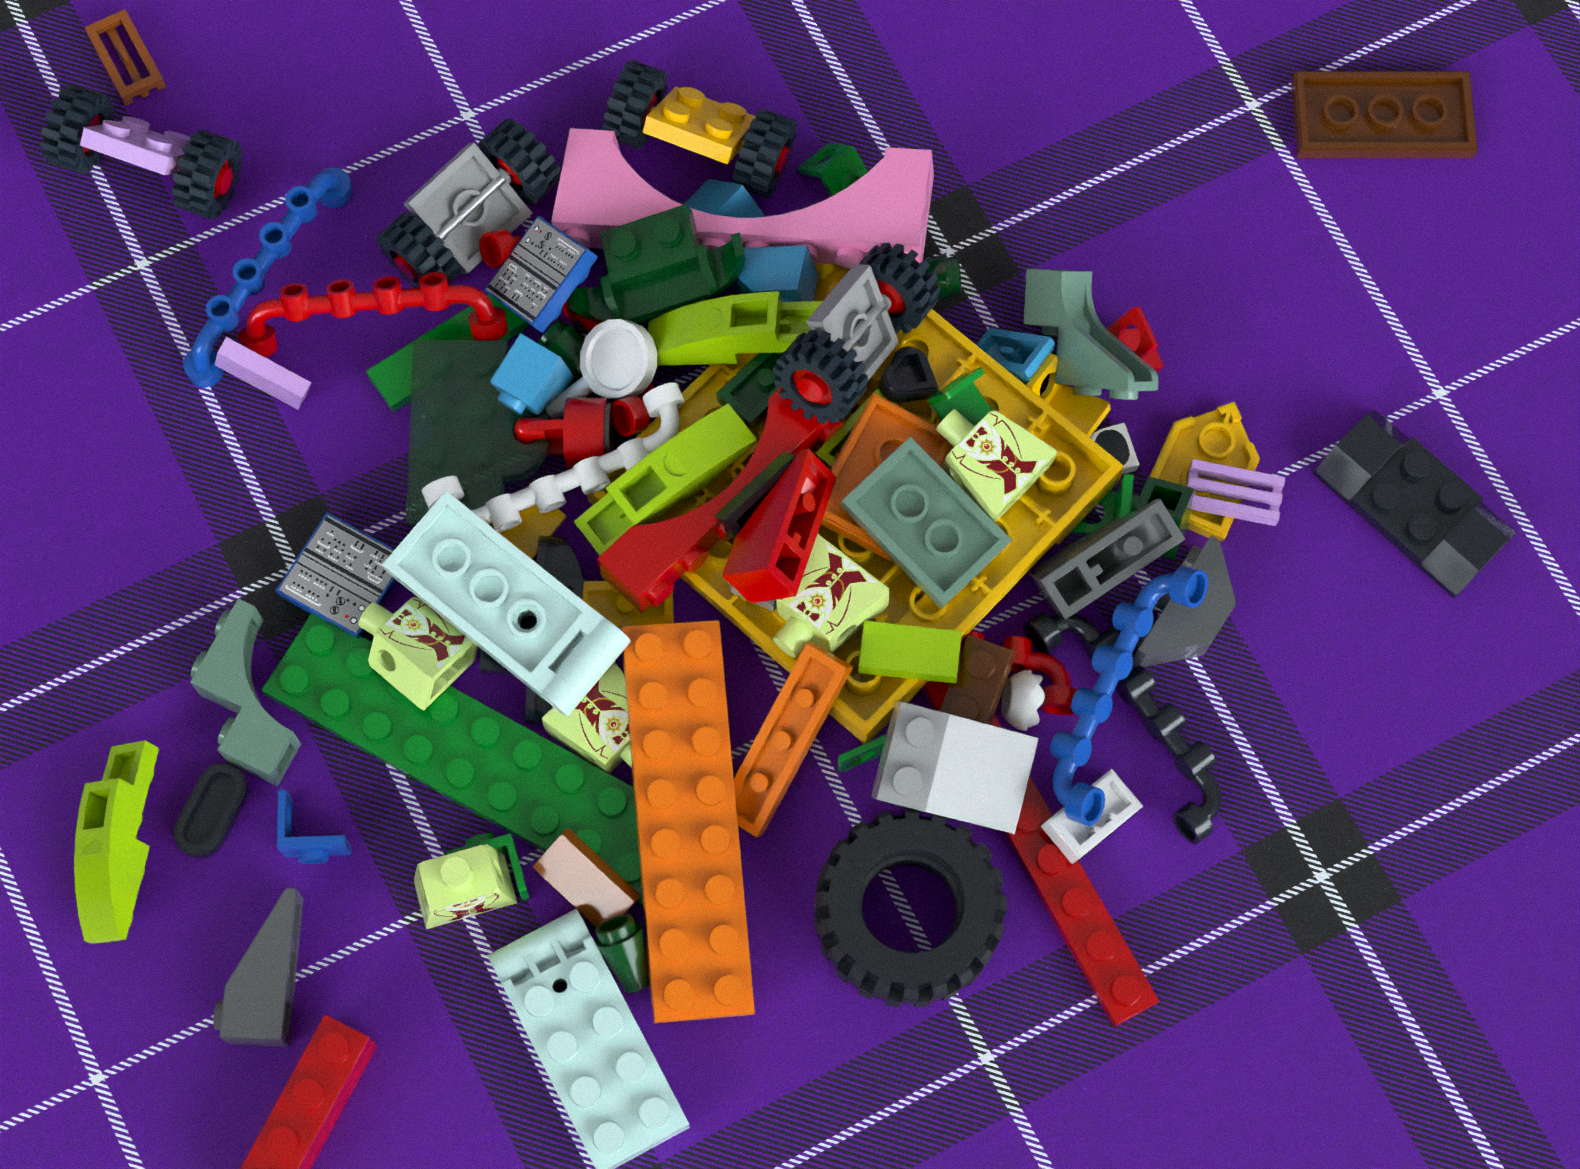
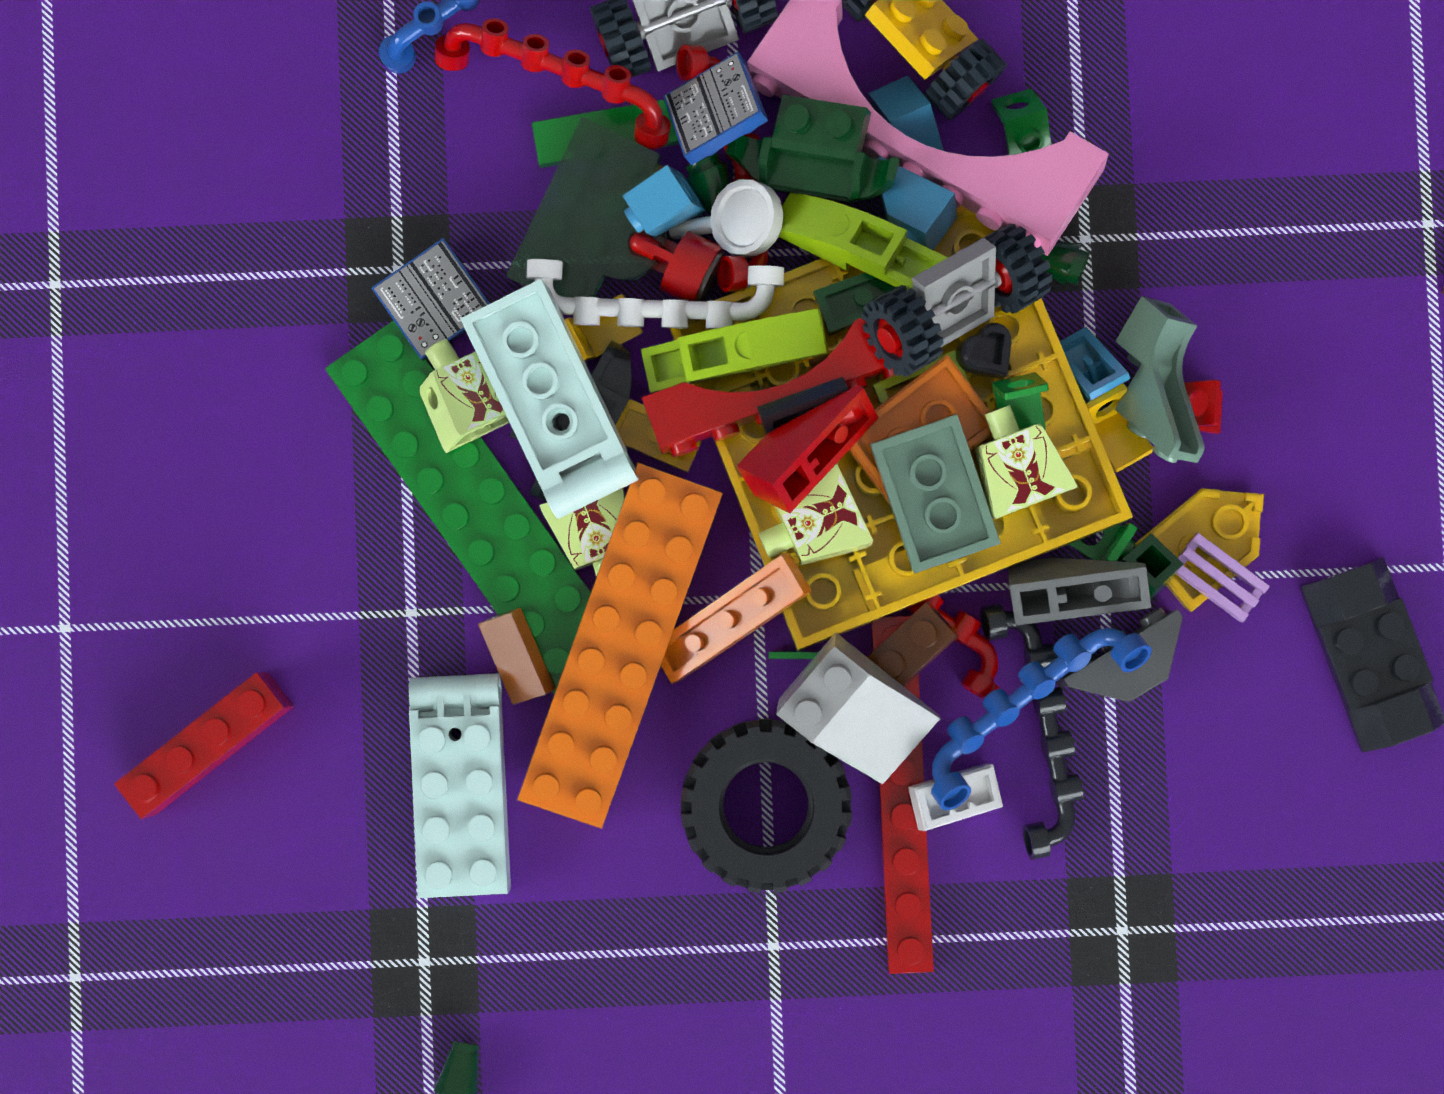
camera: 30 degrees right, 15 degrees up
(107, 854) = (140, 453): lime slope -> none
(211, 810) = (242, 450): black tile -> none
(225, 677) = (300, 343): sand green arch -> none
(262, 373) = (441, 87): lavender tile -> none
(262, 987) = (219, 622): dark grey slope -> none
(307, 848) = (304, 524): blue bracket -> none
(463, 885) = (418, 614): yellowish green torso -> none
(506, 846) = (450, 588): green bracket -> none
(624, 950) = (520, 727): dark green cone -> none
(910, 652) = (868, 597): lime tile -> none
(1022, 699) = (947, 672): white plate -> none
(1118, 444) = (1138, 487): tile -> none

